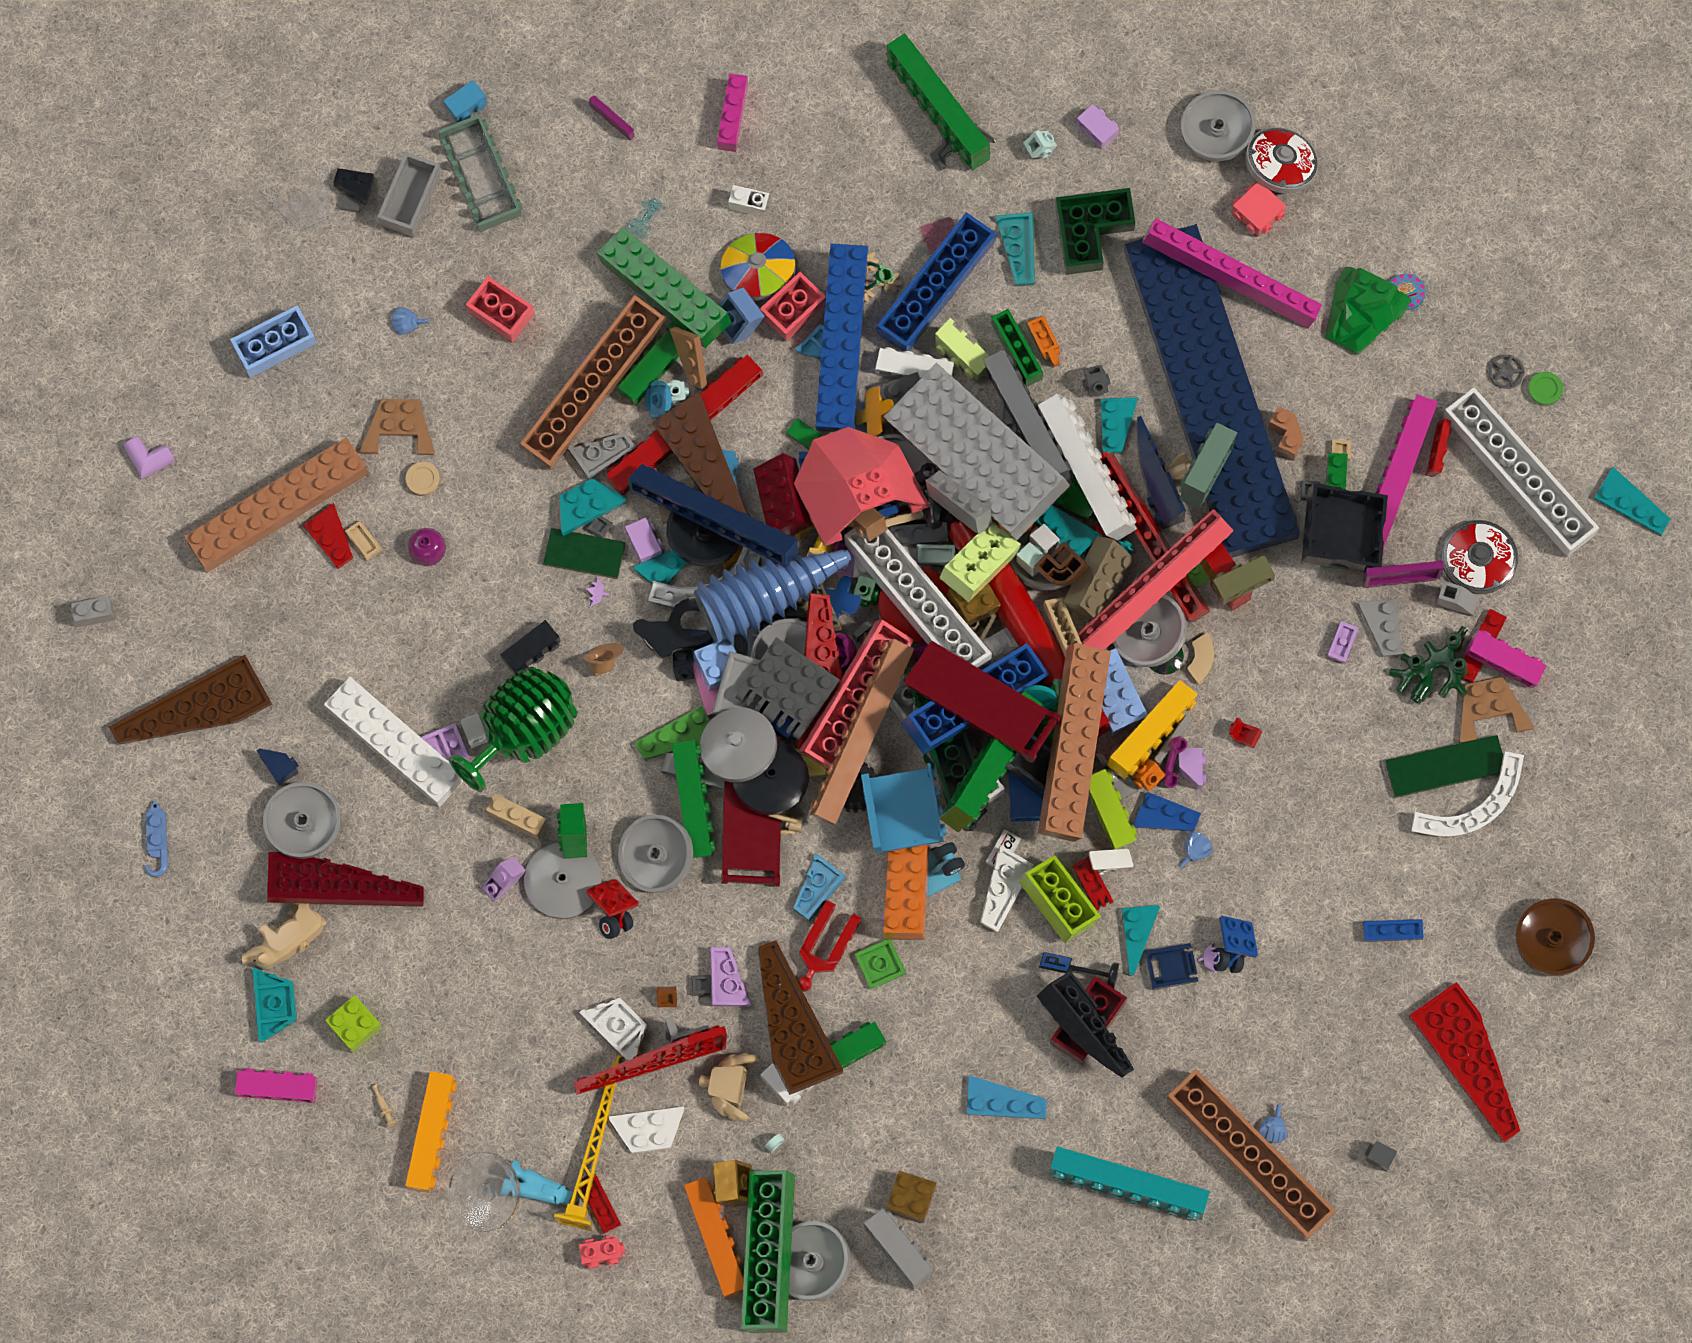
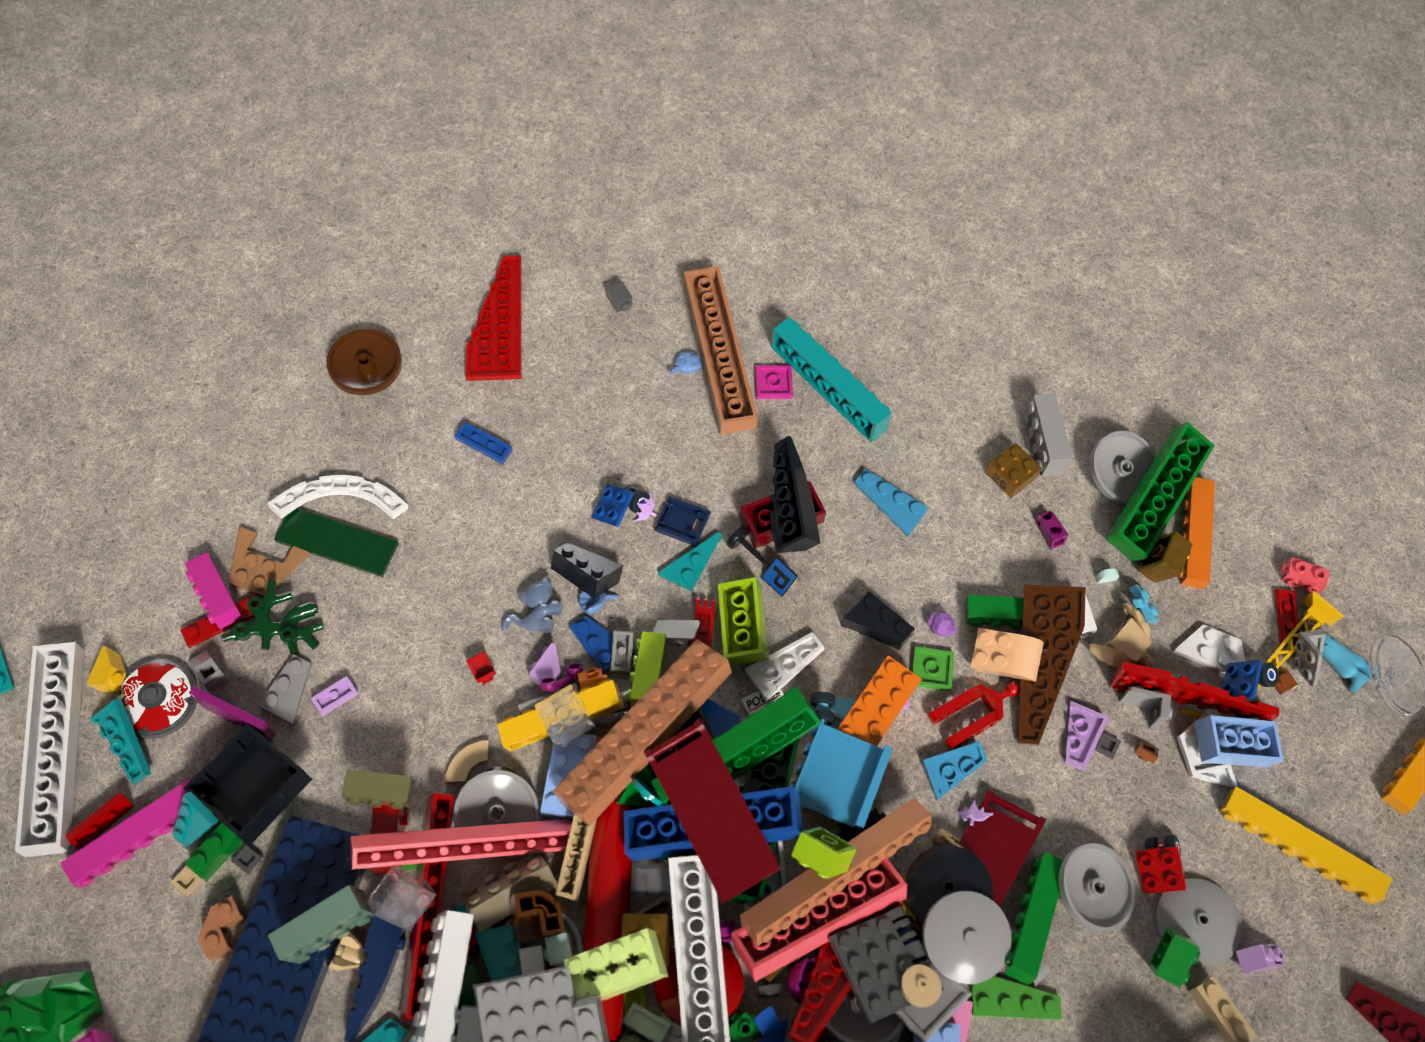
camera: 155 degrees left, 10 degrees down
(505, 992) = (1306, 845): none -> yellow brick
(571, 1169) = (1309, 655): none -> light grey bracket
(578, 1136) = (1285, 681): none -> dark orange plate
(596, 1040) = (1238, 741): none -> light blue brick
(617, 1107) = (1244, 677): none -> blue plate
(730, 1132) = (1141, 601): none -> medium azure plate
(753, 684) = (920, 986): none -> tan piece
(781, 856) = (974, 814): none -> lavender piece
(825, 1000) = (1007, 654): none -> light nougat brick
(848, 1159) = (1051, 529): none -> magenta leg
(879, 723) = (823, 852): none -> lime brick
(893, 1005) = (942, 624): none -> medium lavender rock
(947, 973) = (879, 622): none -> black wedge
(1143, 816) = (621, 651): none -> light grey slope
(1144, 720) = (564, 715): none -> clear brick
(1167, 517) = (401, 898): none -> clear brick
(1181, 1158) = (774, 382): none -> dark pink tile
(1219, 864) = (586, 569): none -> black wedge
(1242, 818) = (538, 598): none -> sand blue animal
(1363, 481) = (192, 820): none -> teal wing
(1472, 509) = (124, 743): none -> teal wing
(1530, 550) = (107, 671): none -> yellow slope

